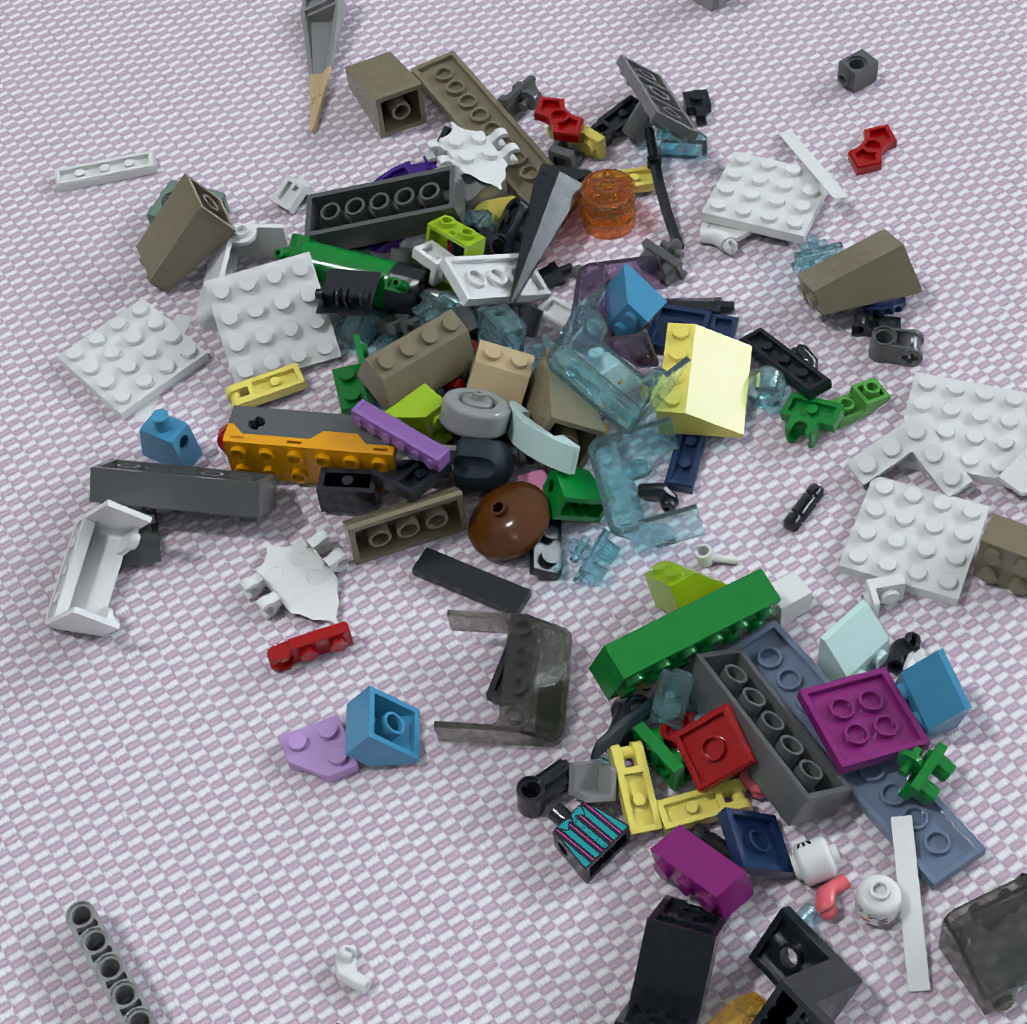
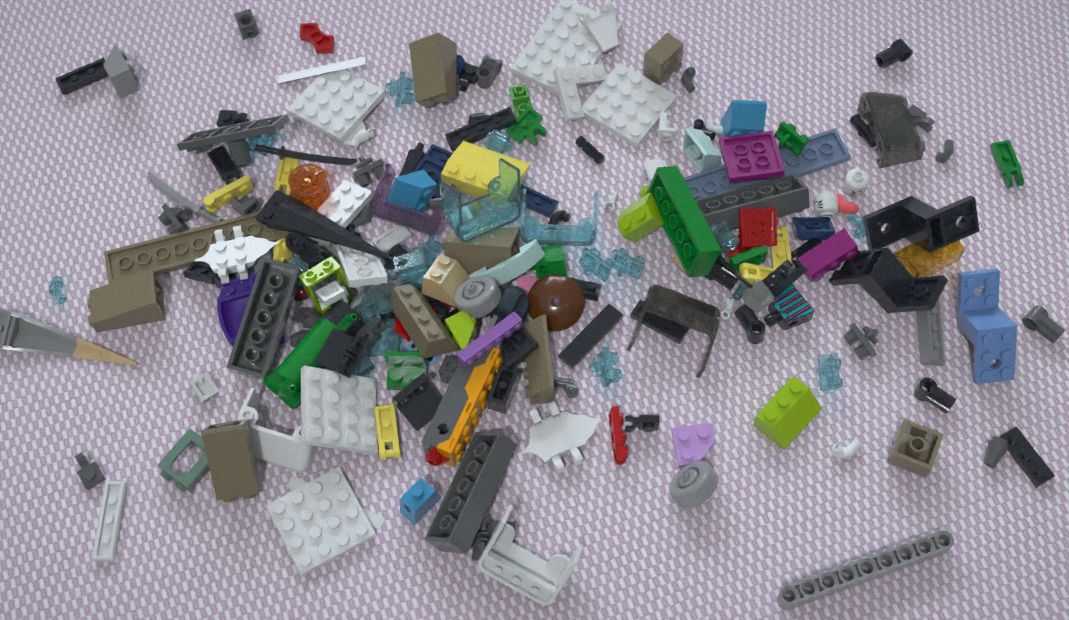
camera: 80 degrees left, 10 degrees up
(162, 136) = (90, 473): none -> dark grey plate
(245, 757) = (693, 484): none -> light grey wheel
(315, 392) = (417, 402): none -> black bracket
(337, 679) = (647, 423): none -> black plate
(381, 573) = (567, 385): none -> dark grey arm
(382, 729) = (692, 404): dark azure slope -> none
(393, 31) = (56, 289): none -> clear light blue arm
(395, 868) = (787, 413): none -> lime slope
(408, 613) = (603, 367): none -> clear light blue hips
(478, 914) = (829, 372): none -> clear light blue hips
(555, 749) = (728, 311): none -> white arm
(558, 963) = (866, 348): none -> dark grey hips
(560, 92) = (197, 209): none -> light grey sword
(564, 124) = (211, 198): red tile -> none
(587, 244) = (344, 205): none -> white plate
(601, 593) = (627, 264): none -> clear light blue hips
(635, 808) = (784, 276): none -> black hinge
(910, 906) = (846, 167): white sticker -> none
(1001, 608) = (687, 78): none -> dark grey arm

